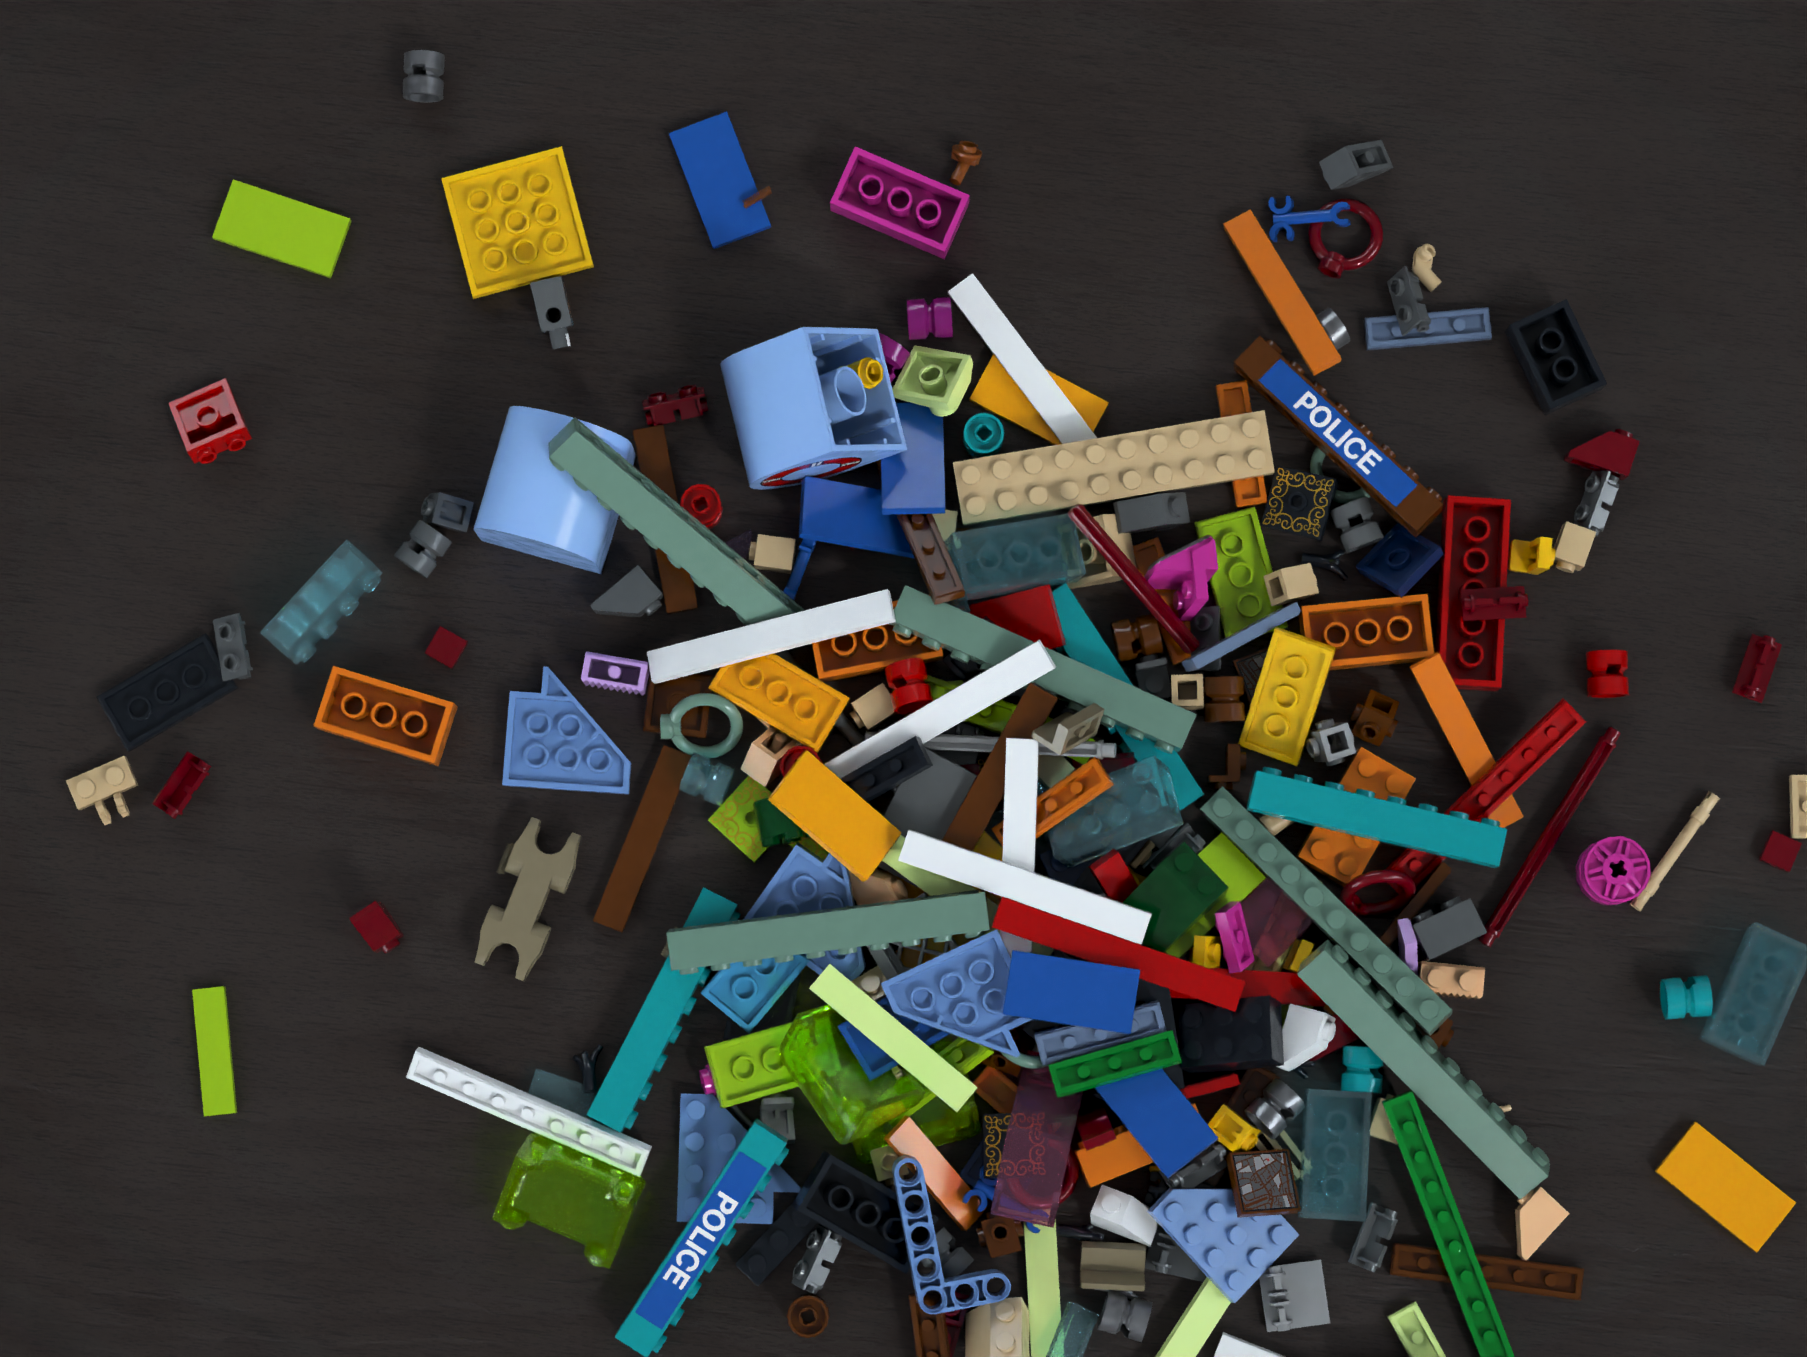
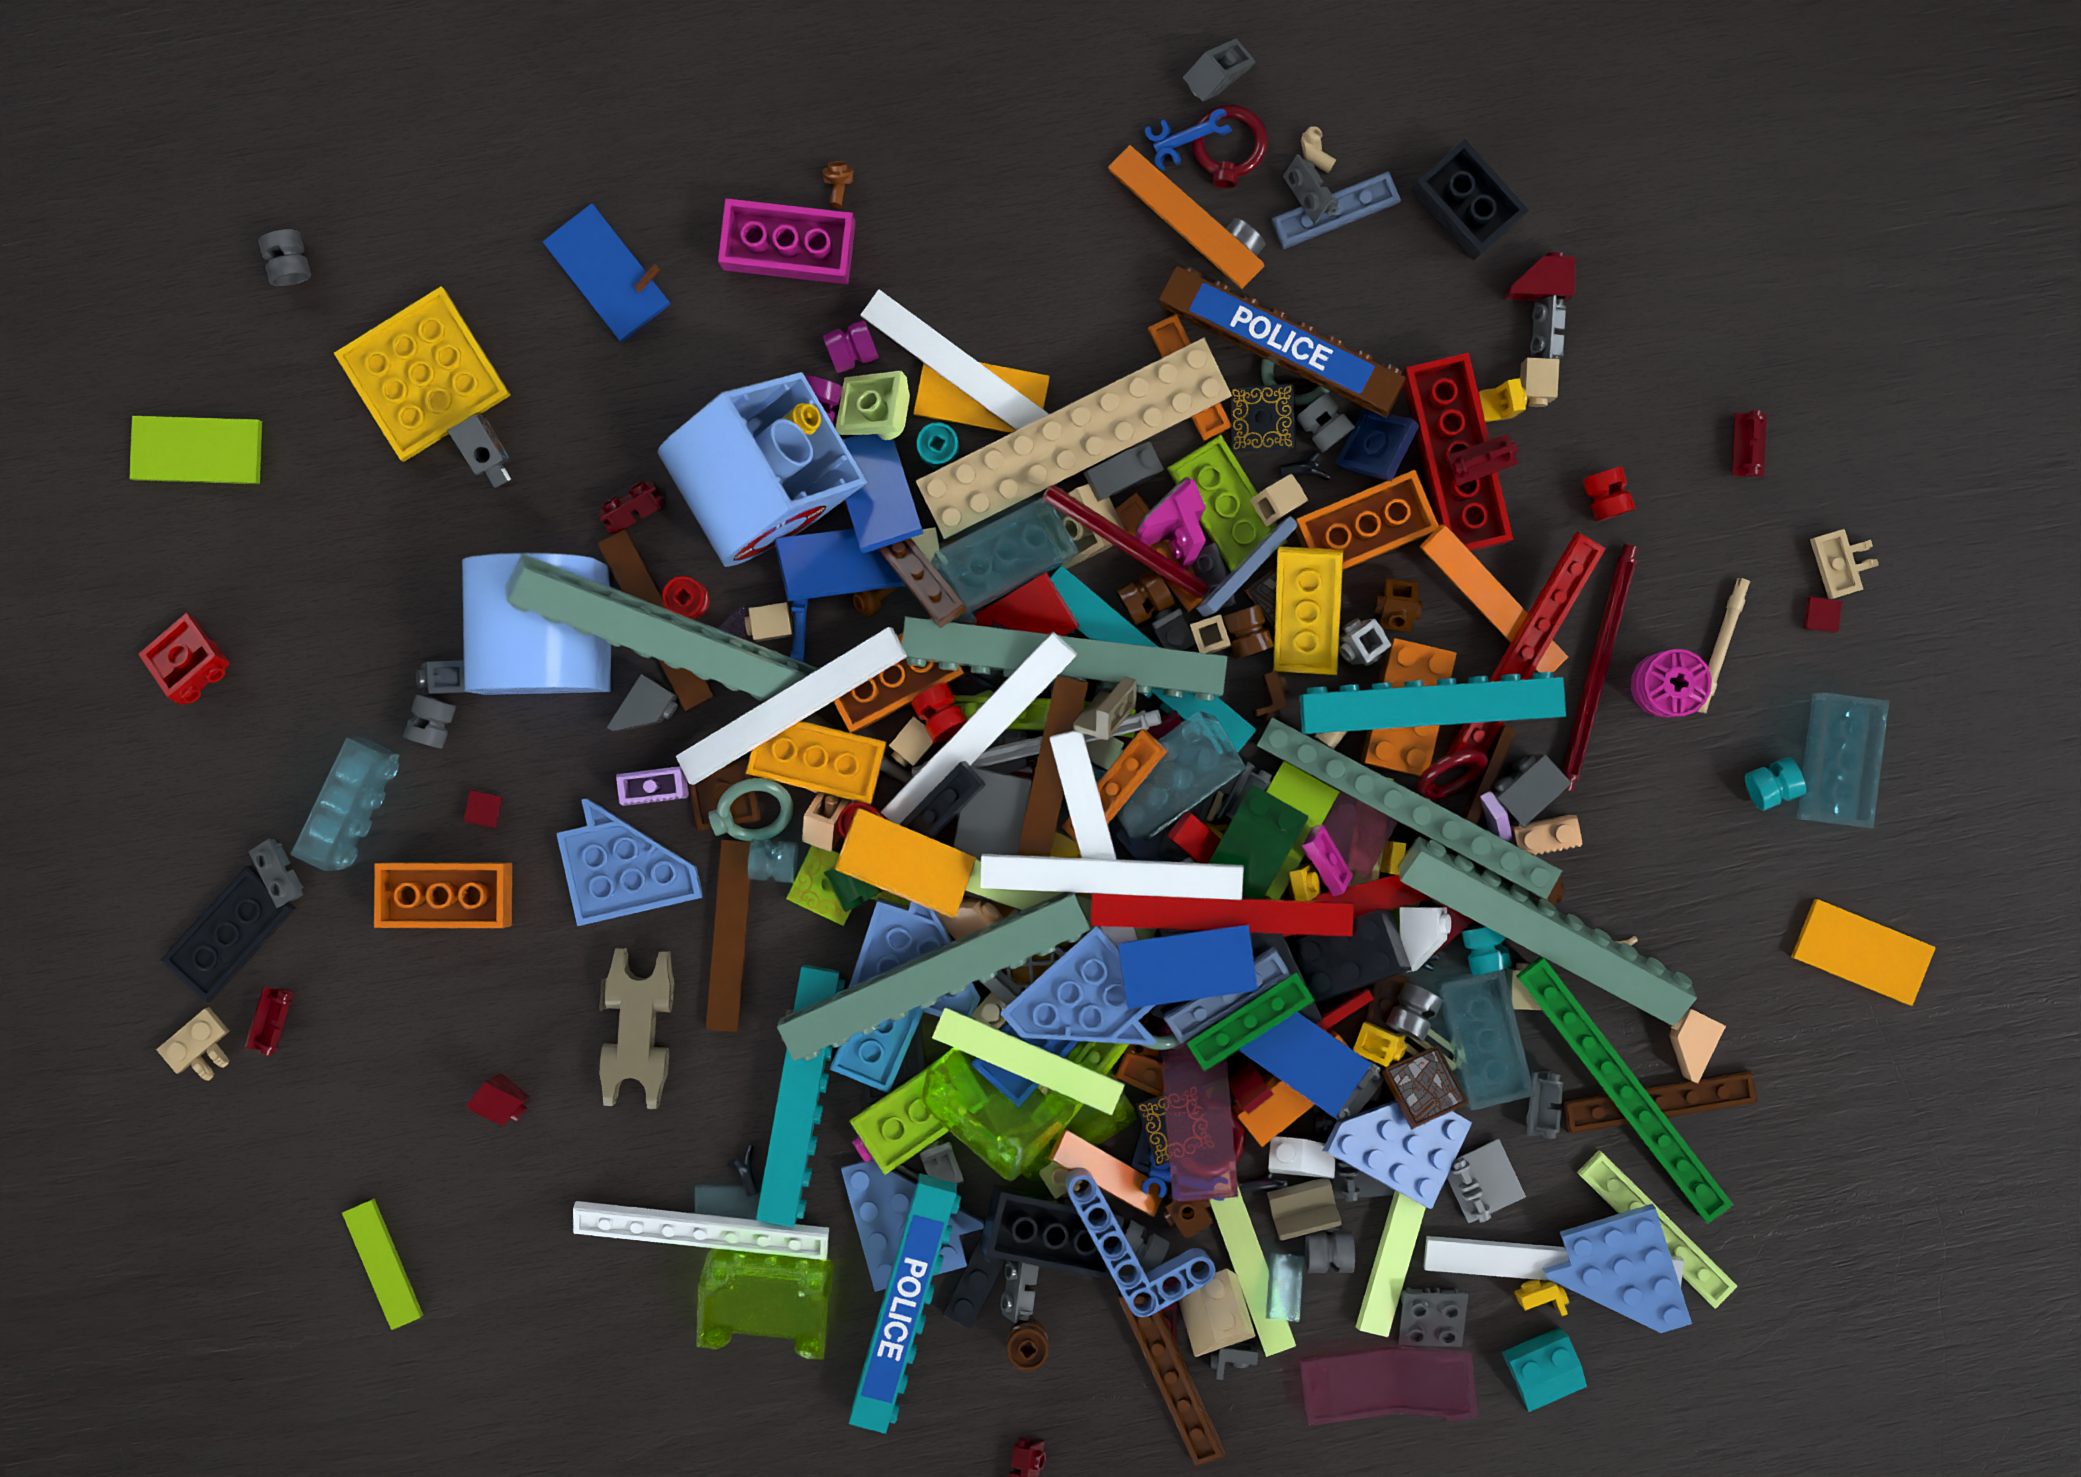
camera: 15 degrees left, 5 degrees up
(872, 562) = (869, 601): none -> dark orange plate

